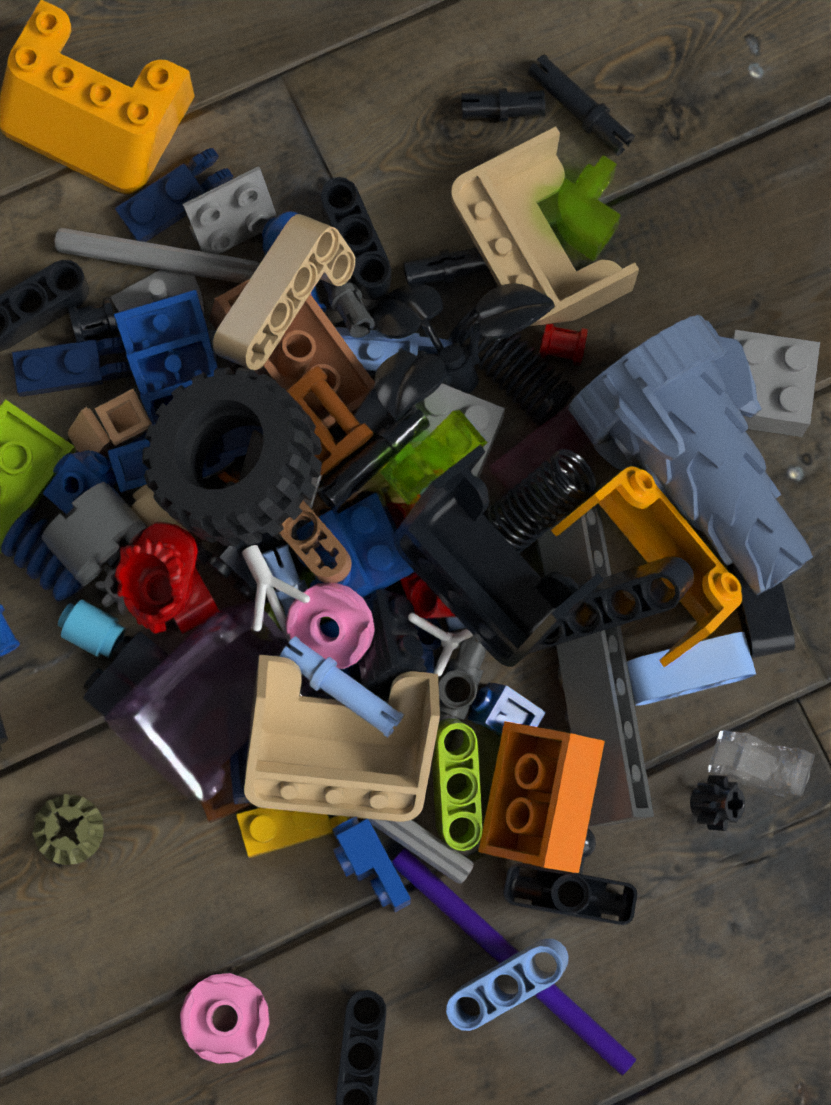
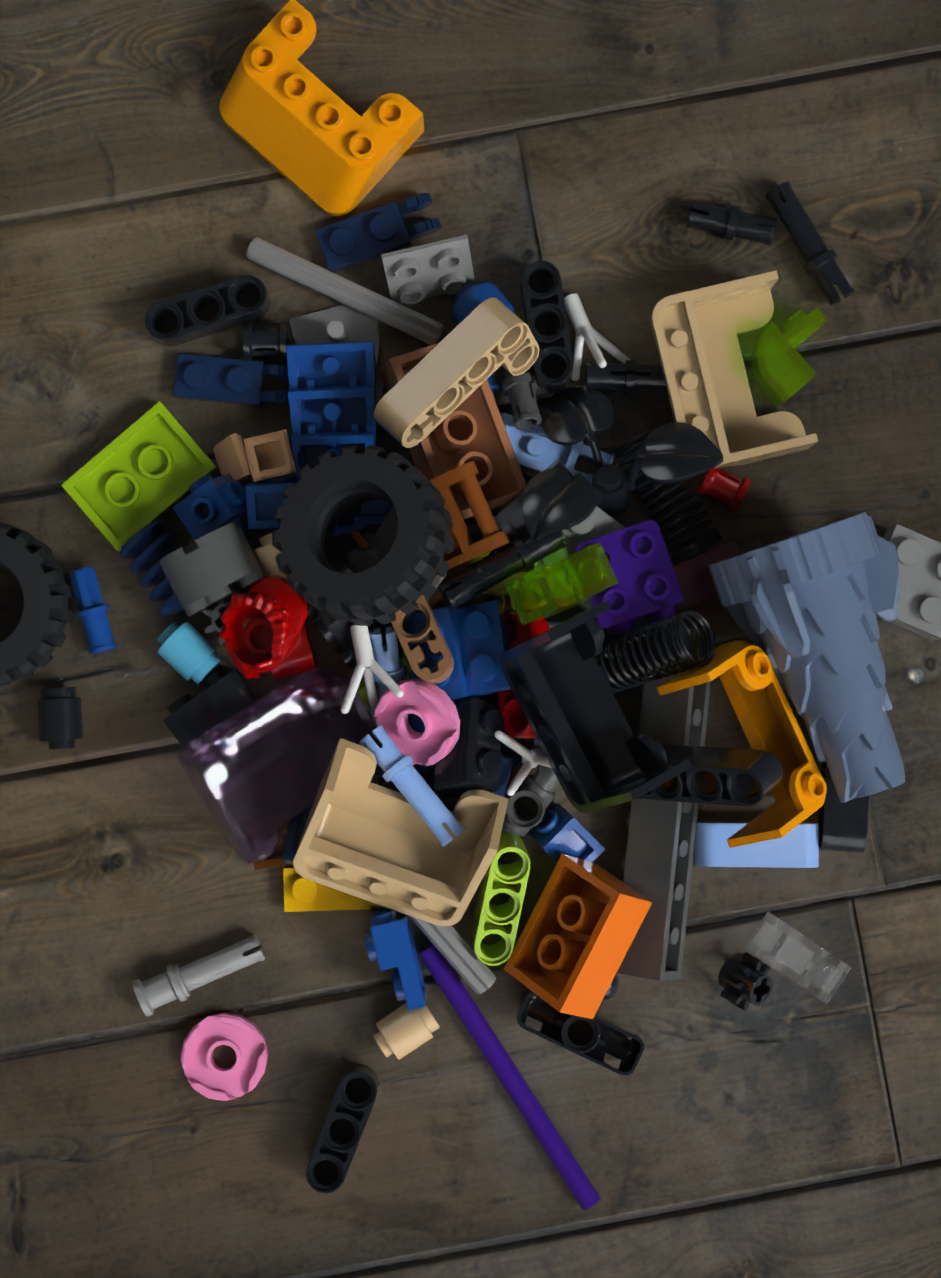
camera: 15 degrees right, 10 degrees up
(89, 830) = (127, 820): olive gear -> none
(160, 954) = (179, 981): none -> light grey pin
(391, 235) = (586, 332): none -> white plant
(398, 940) = (405, 1030): none -> tan brick
(495, 1001) = (483, 1115): light blue beam -> none
(513, 438) = (643, 576): none -> dark purple bracket

